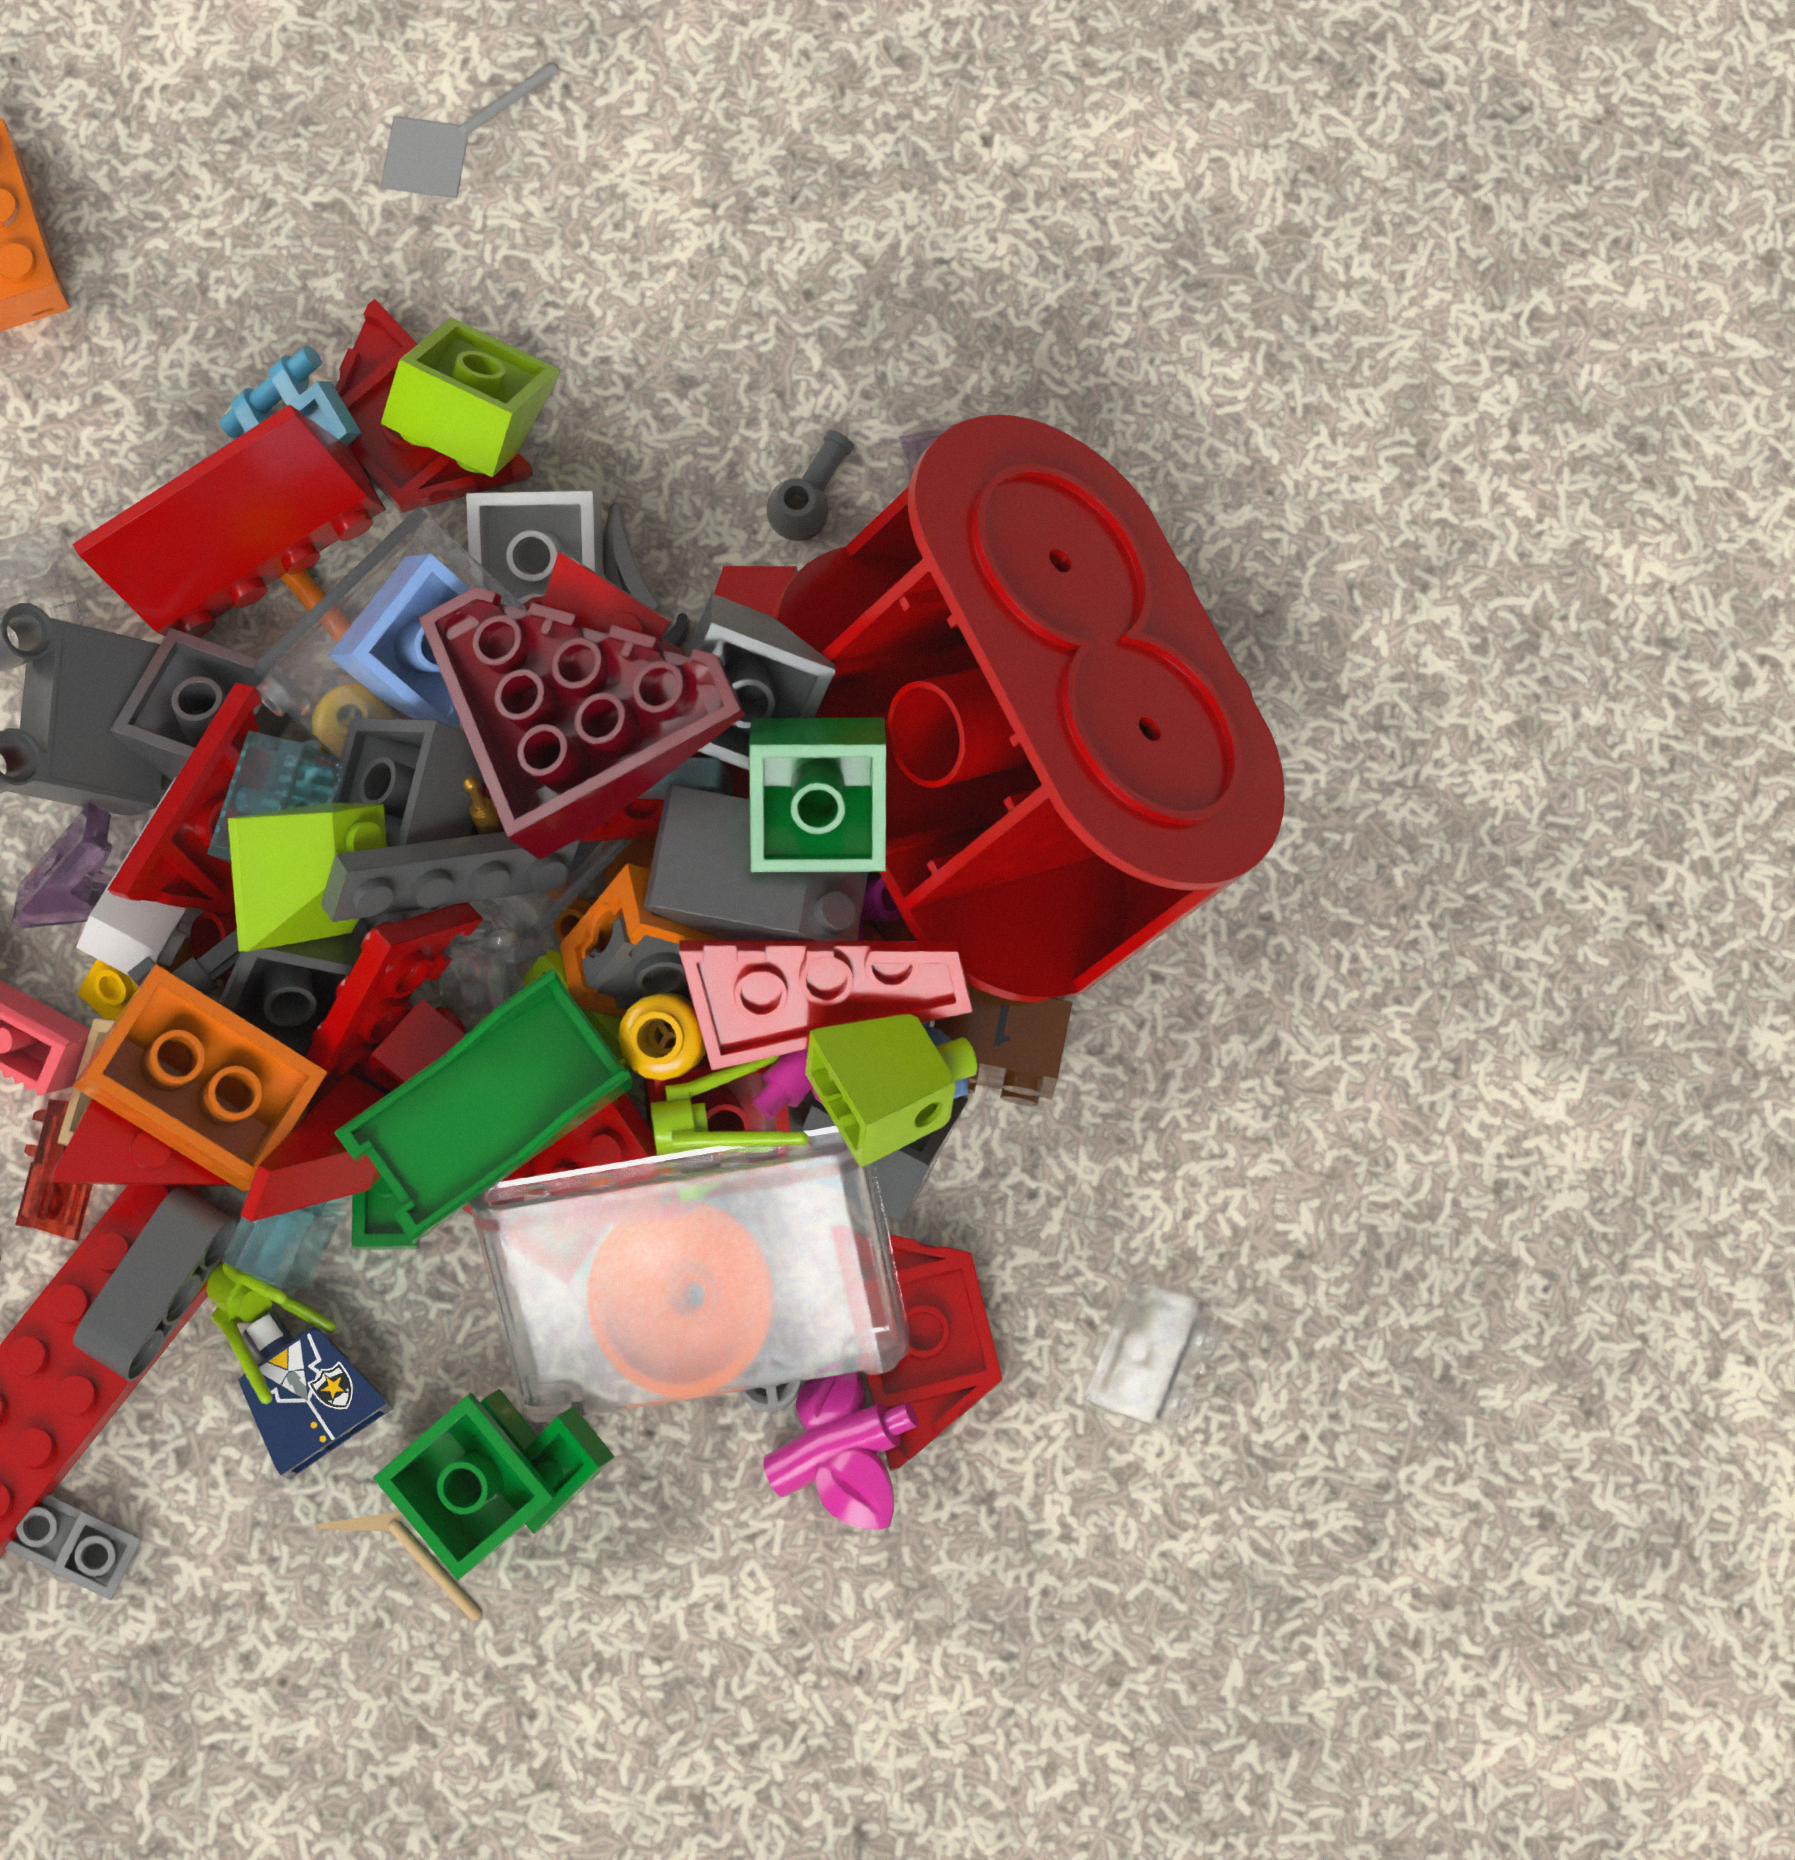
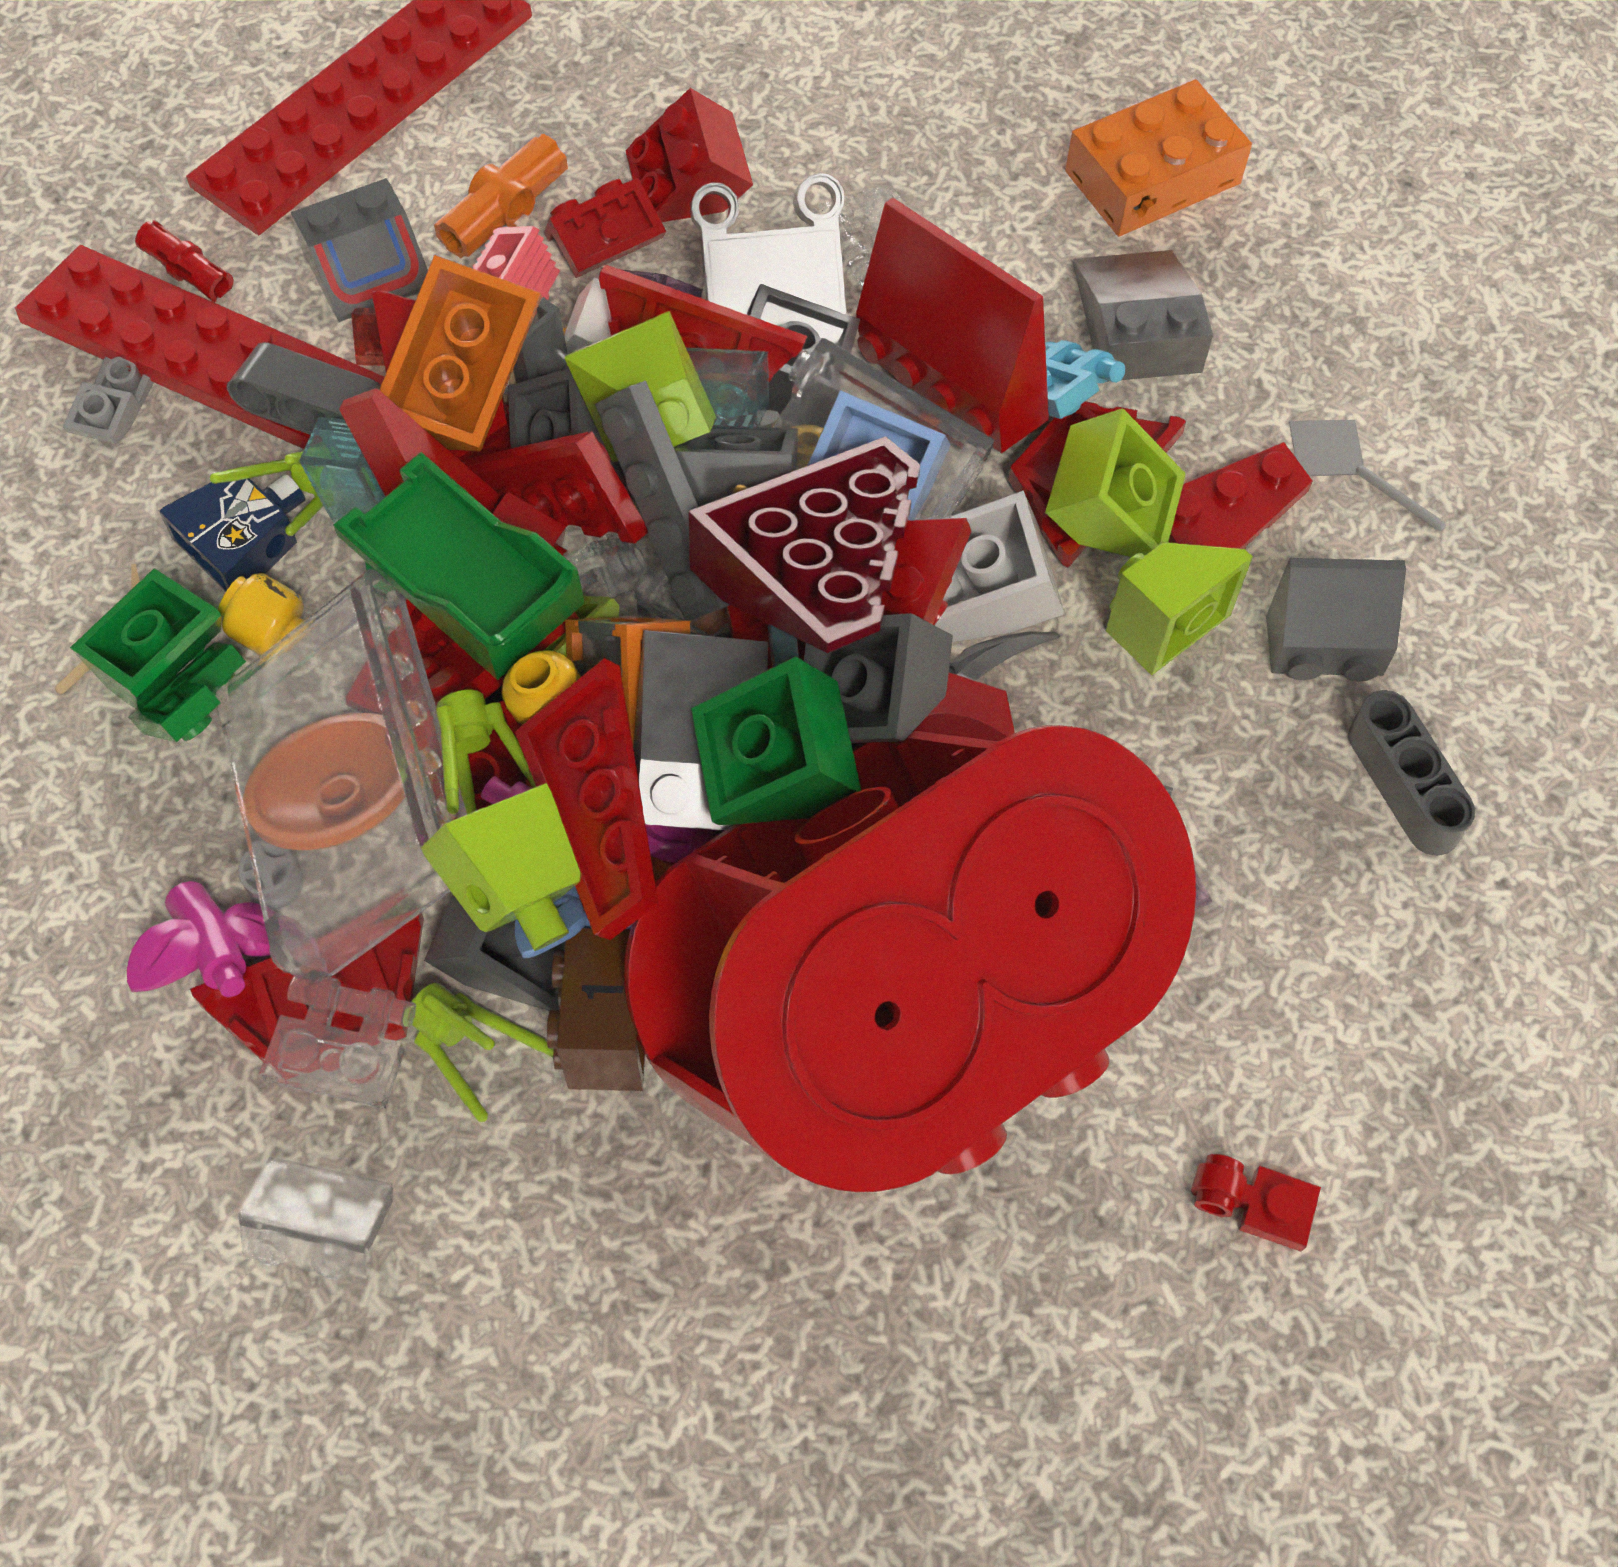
camera: 80 degrees right, 15 degrees down
(197, 307) = (1145, 313): none -> flat silver slope
(433, 1369) = (259, 611): none -> yellow head
(491, 277) = (1239, 499): none -> red wing
(626, 378) = (1174, 599): none -> lime slope
(677, 213) = (1336, 617): none -> dark grey slope
(878, 168) = (1411, 747): none -> dark grey beam
(963, 1212) = (446, 1020): none -> lime plant
(999, 1322) = (337, 1060): none -> clear plate
(1281, 450) = (1273, 1204): none -> red plate

